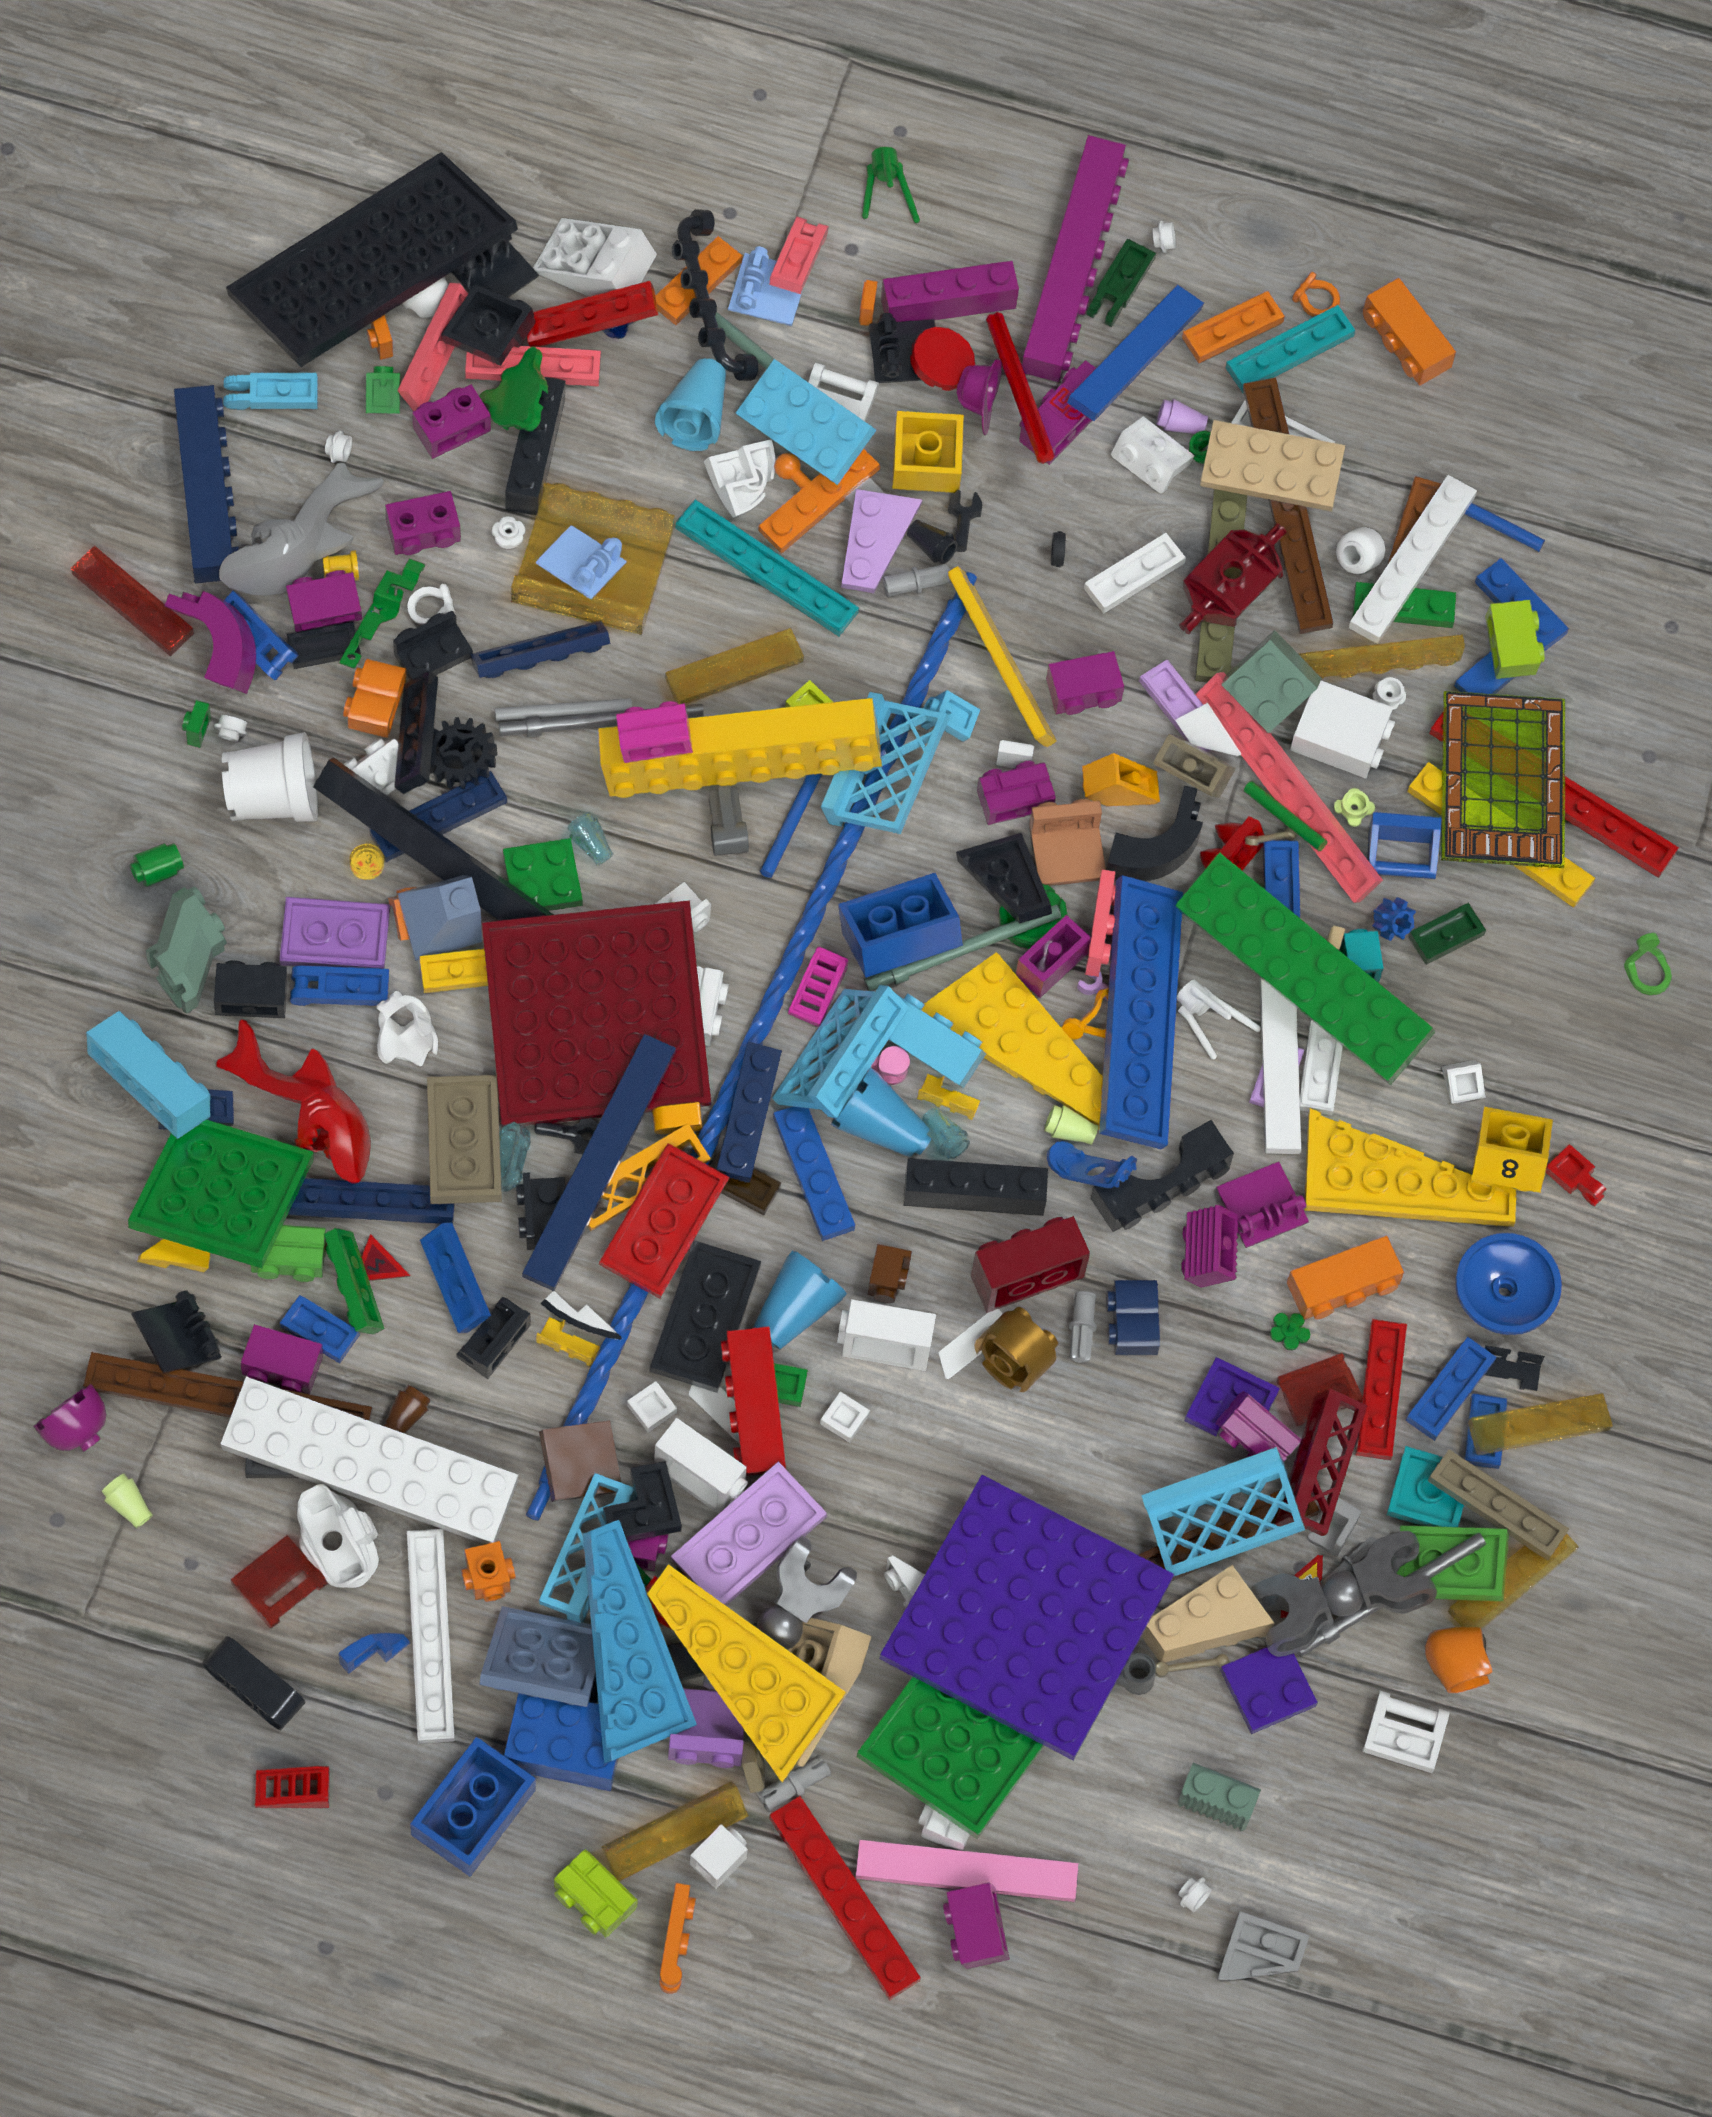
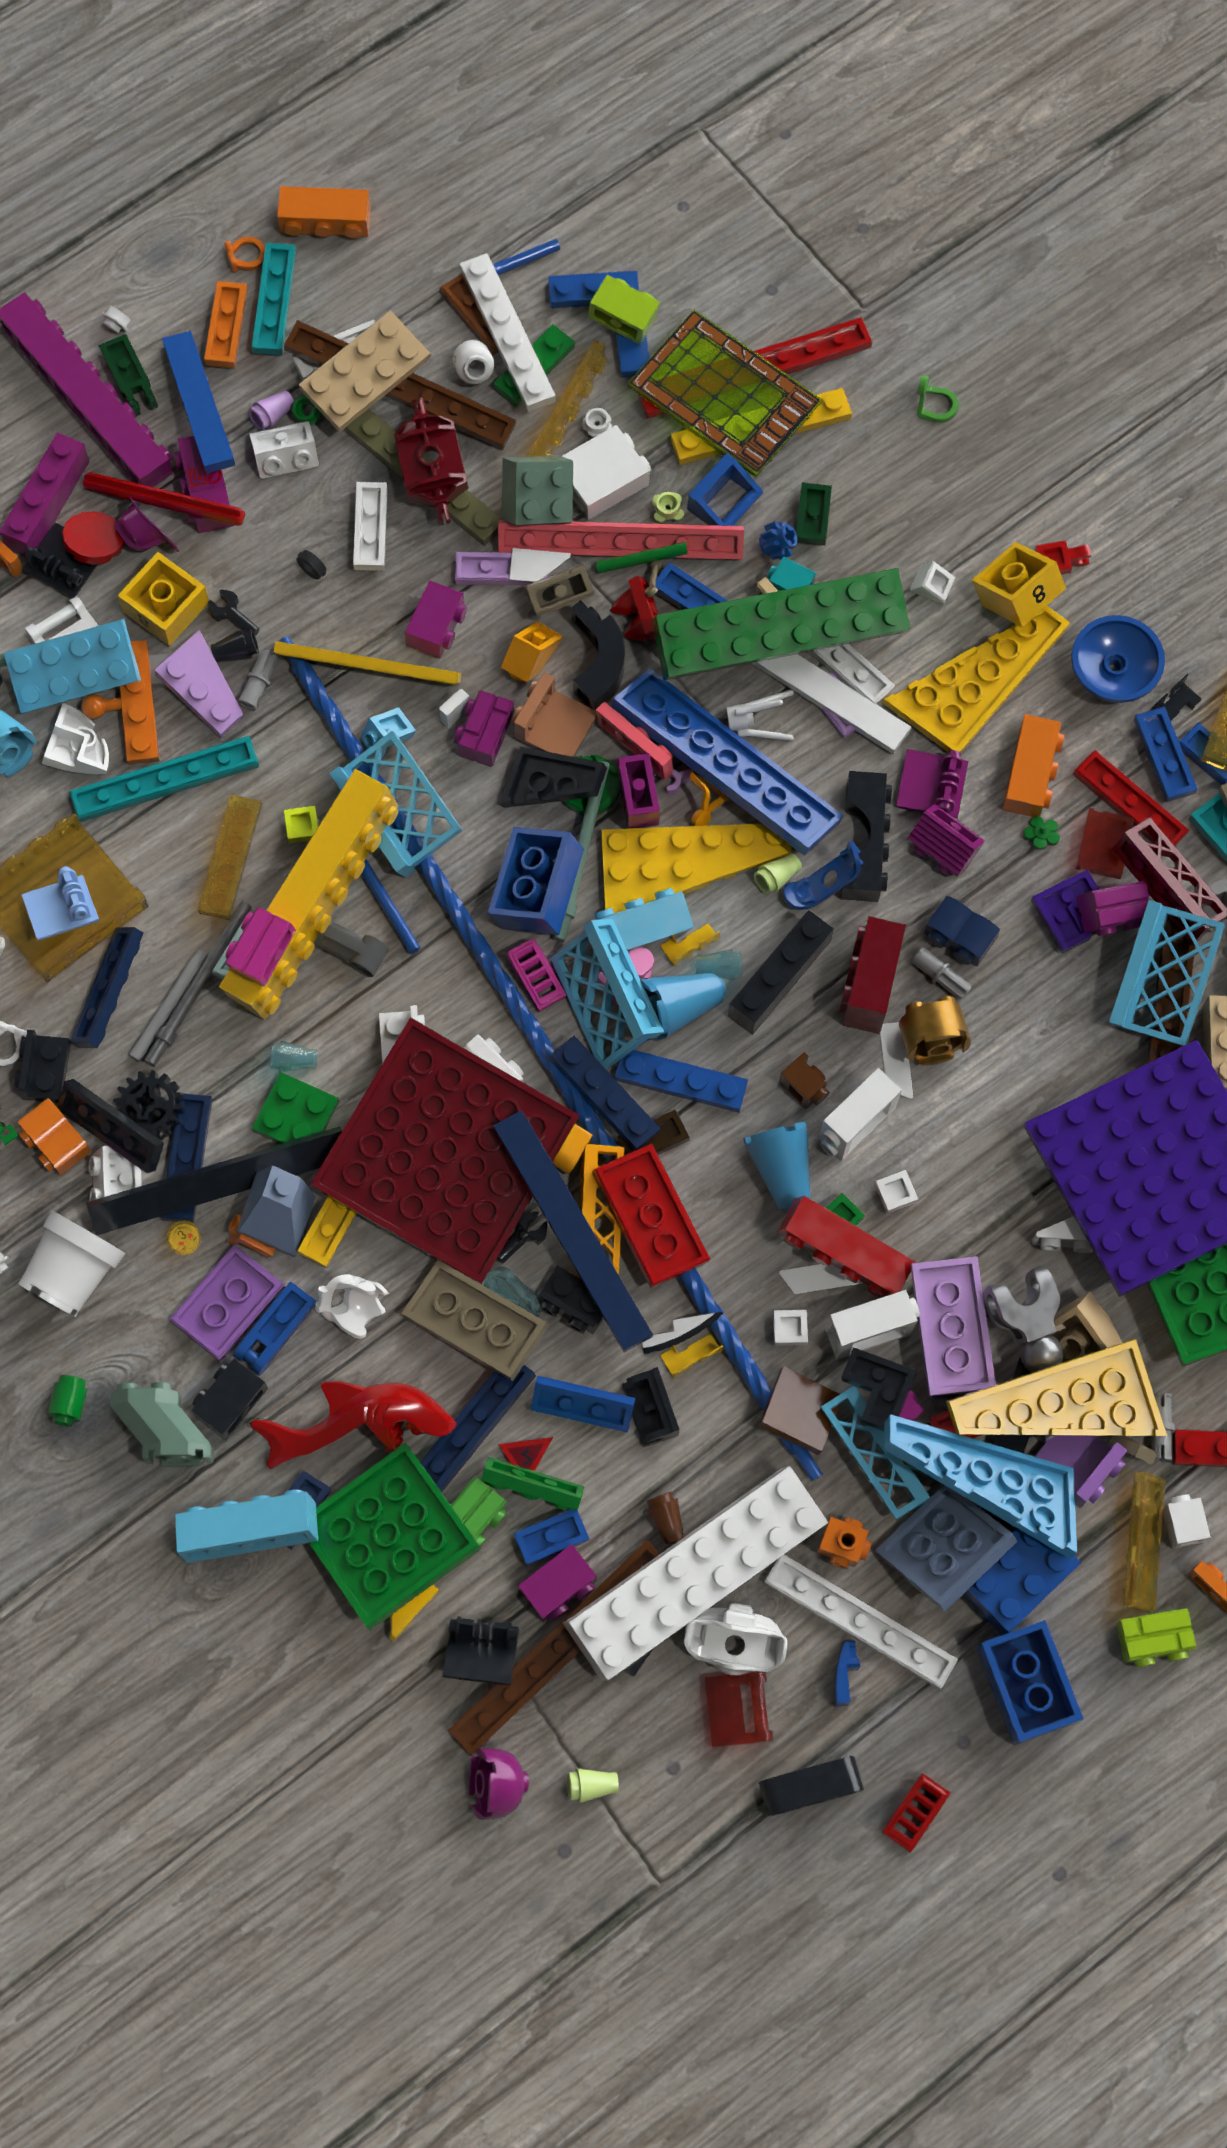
camera: 50 degrees left, 5 degrees up
(705, 1307) = (745, 1238): black plate -> none

